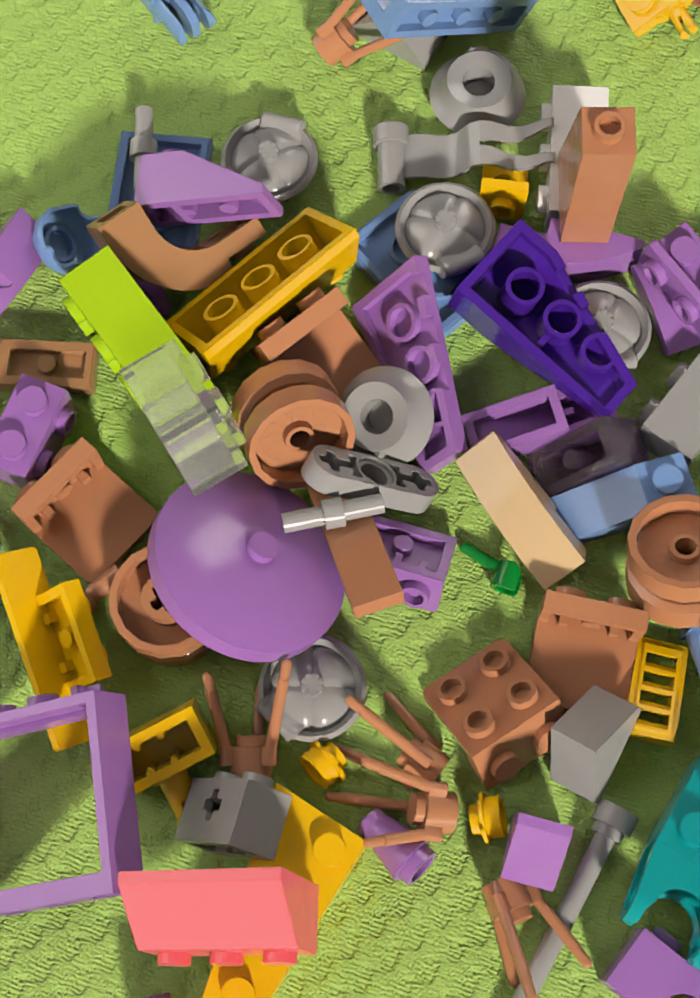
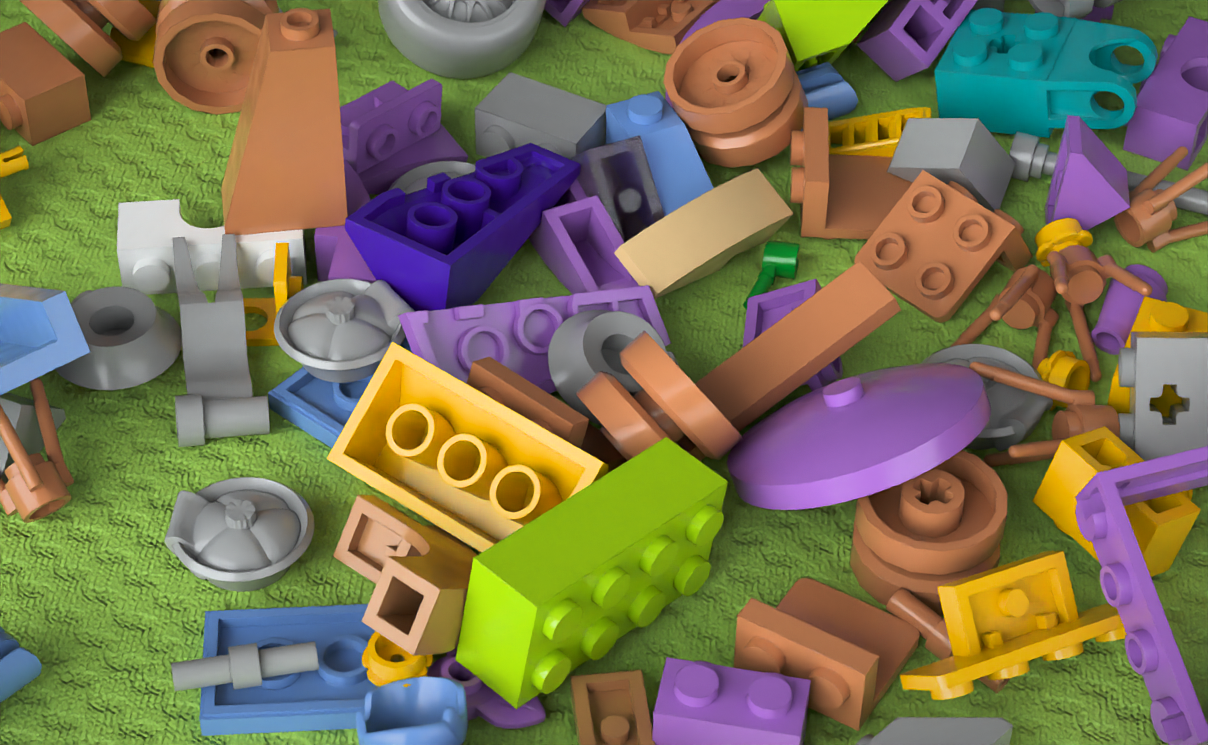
camera: 105 degrees left, 30 degrees down
(187, 415) = (710, 432): clear brick -> none
(189, 190) = (322, 560): medium lavender slope -> none
(333, 513) = (771, 358): light grey bar -> none
(345, 475) = (708, 352): light grey beam -> none

